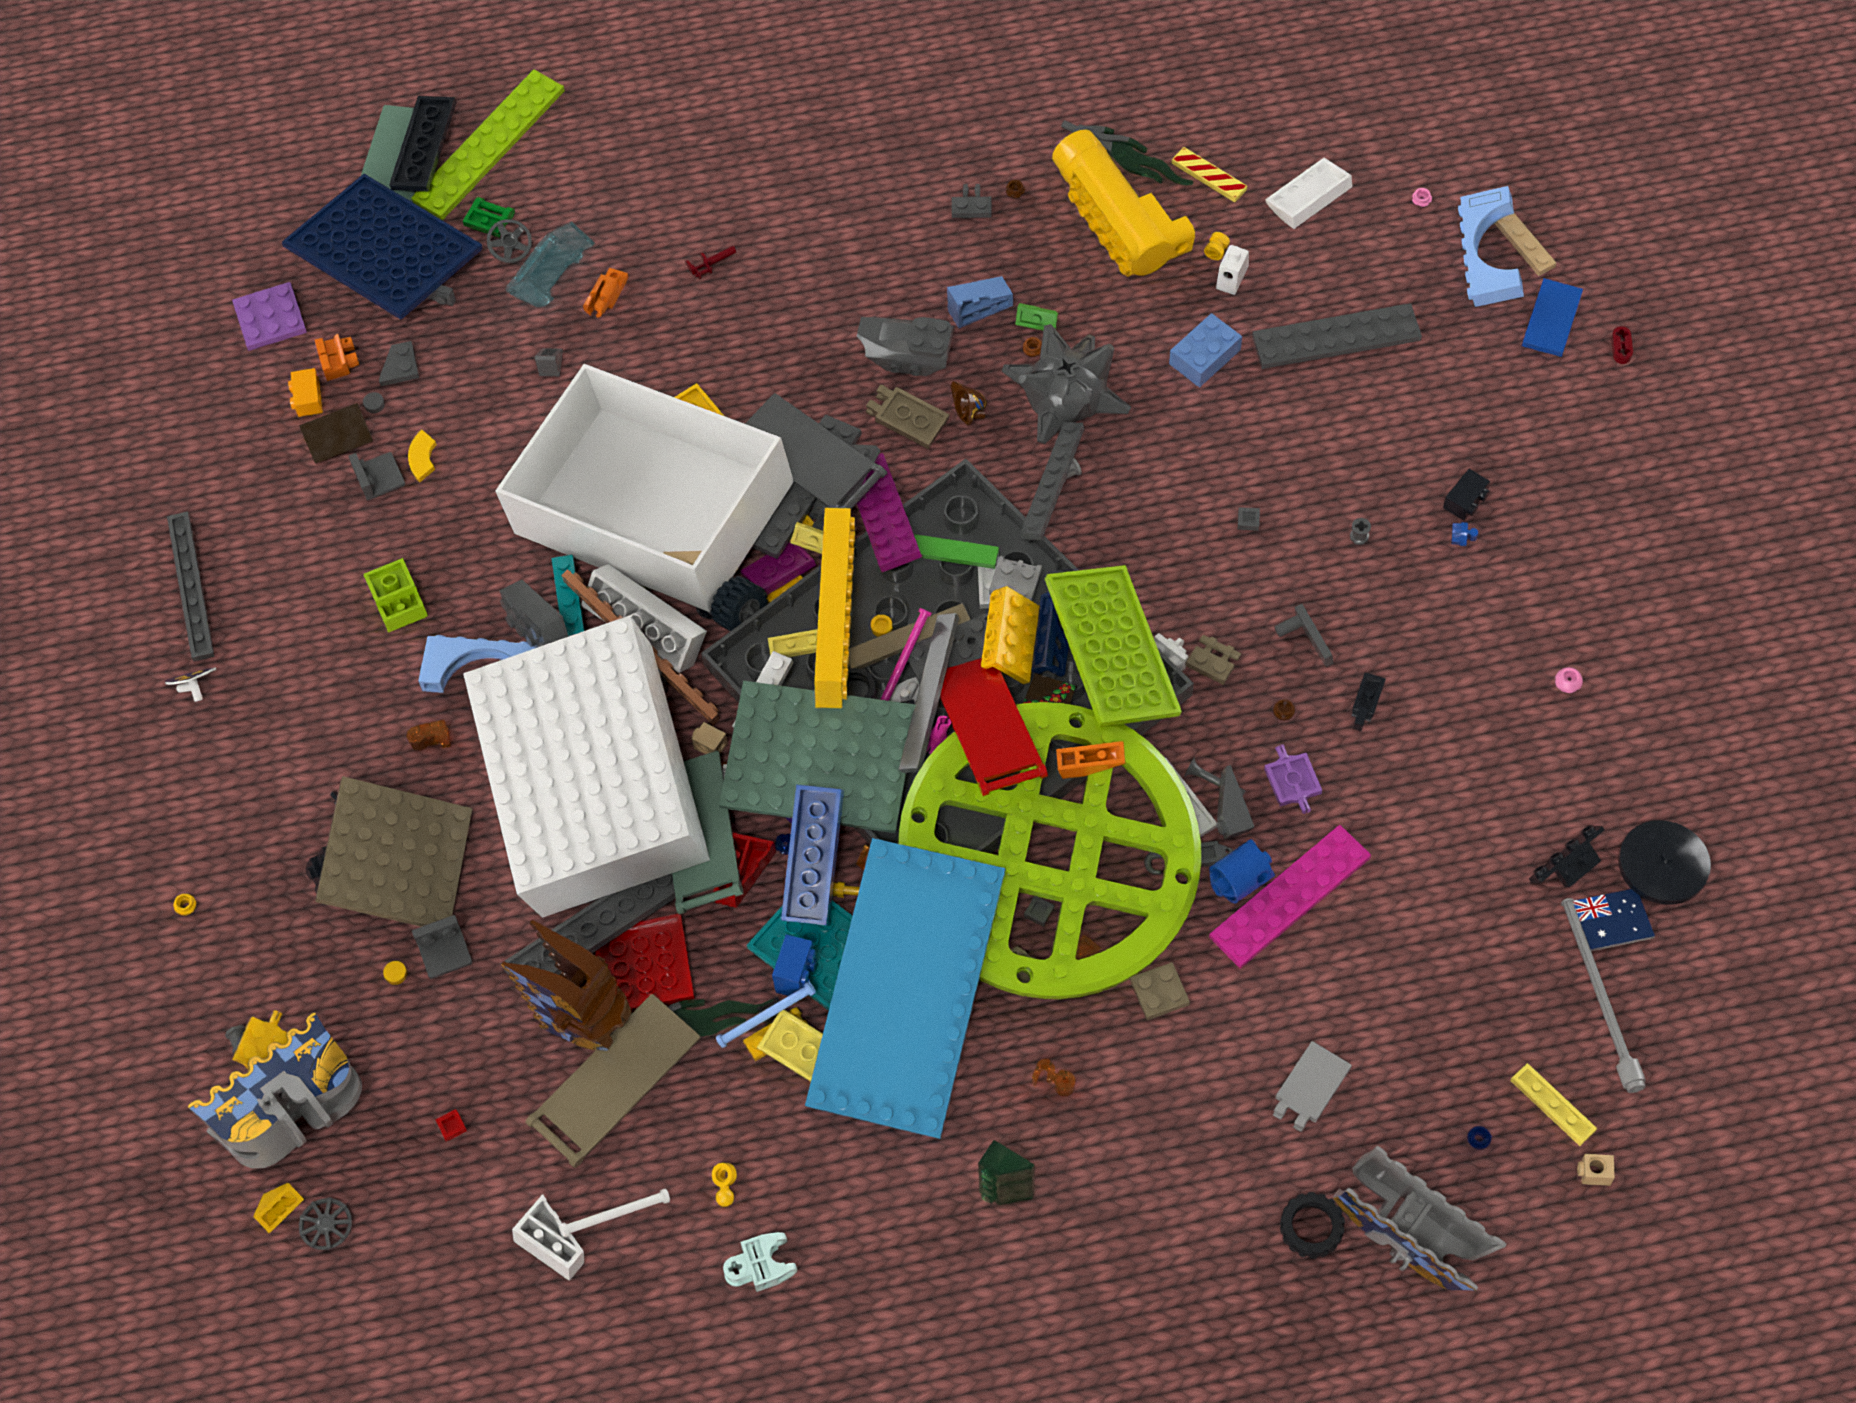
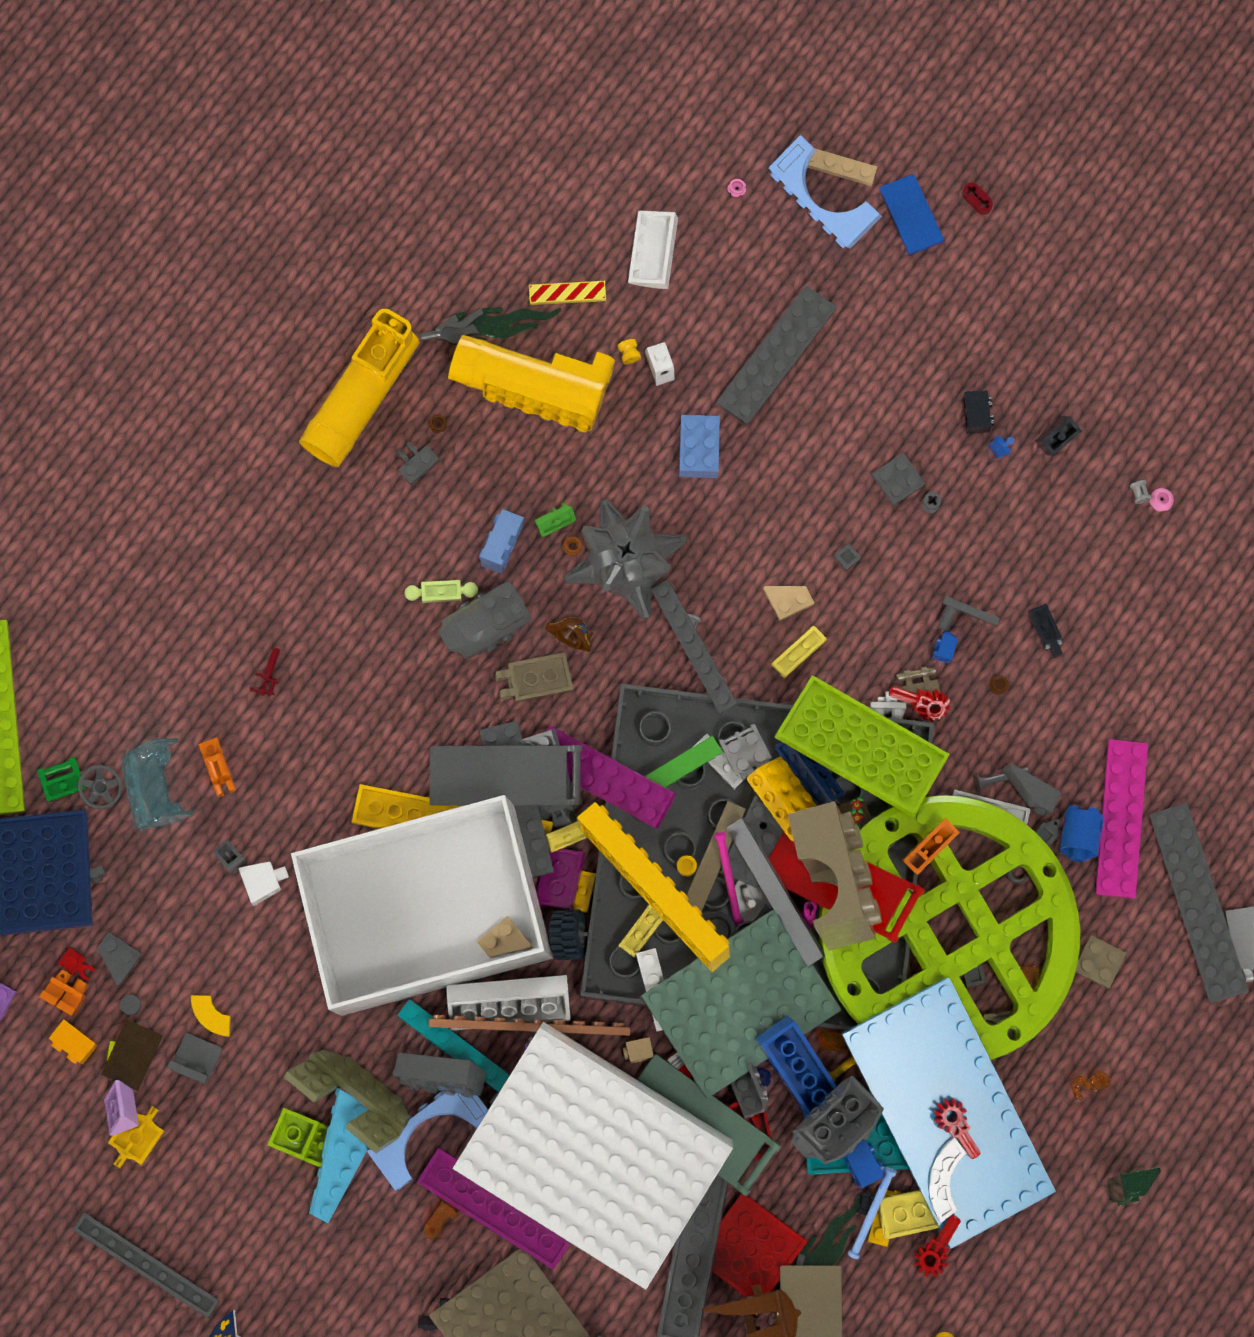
camera: 50 degrees left, 15 degrees up
(279, 492) = (137, 1141): none -> yellow plate
(289, 459) = (120, 1108): none -> lavender slope
(366, 344) = (75, 962): none -> red plate
(429, 612) = (340, 1156): none -> medium azure wing
(471, 609) = (327, 1071): none -> olive plate
(472, 767) = (491, 1210): none -> magenta plate
(549, 390) = (262, 881): none -> white torso
(759, 832) = (749, 1094): none -> dark grey bracket
(792, 1094) = (938, 1248): none -> red gear
(803, 902) = (838, 1123): none -> dark grey slope
(848, 1034) = (940, 1178): none -> white tile
(896, 300) = (441, 591): none -> yellowish green plate
(900, 998) = (957, 1126): none -> gear
(964, 726) = (827, 848): none -> dark tan piece
(1008, 109) = (360, 388): none -> yellow piece
(1140, 557) = (799, 652): none -> light yellow tile
(1168, 514) = (788, 600): none -> tan wing
(1202, 666) = (922, 701): none -> red gear
(1264, 646) = (945, 647): none -> blue brick
(1293, 779) = (1050, 732): medium lavender plate -> none
(1293, 1016) = (1199, 903): none -> dark grey plate
(1349, 496) = (898, 479): none -> dark grey plate
(1520, 560) = (1058, 435): none -> black brick
(1546, 663) = (1140, 492): none -> light grey bush

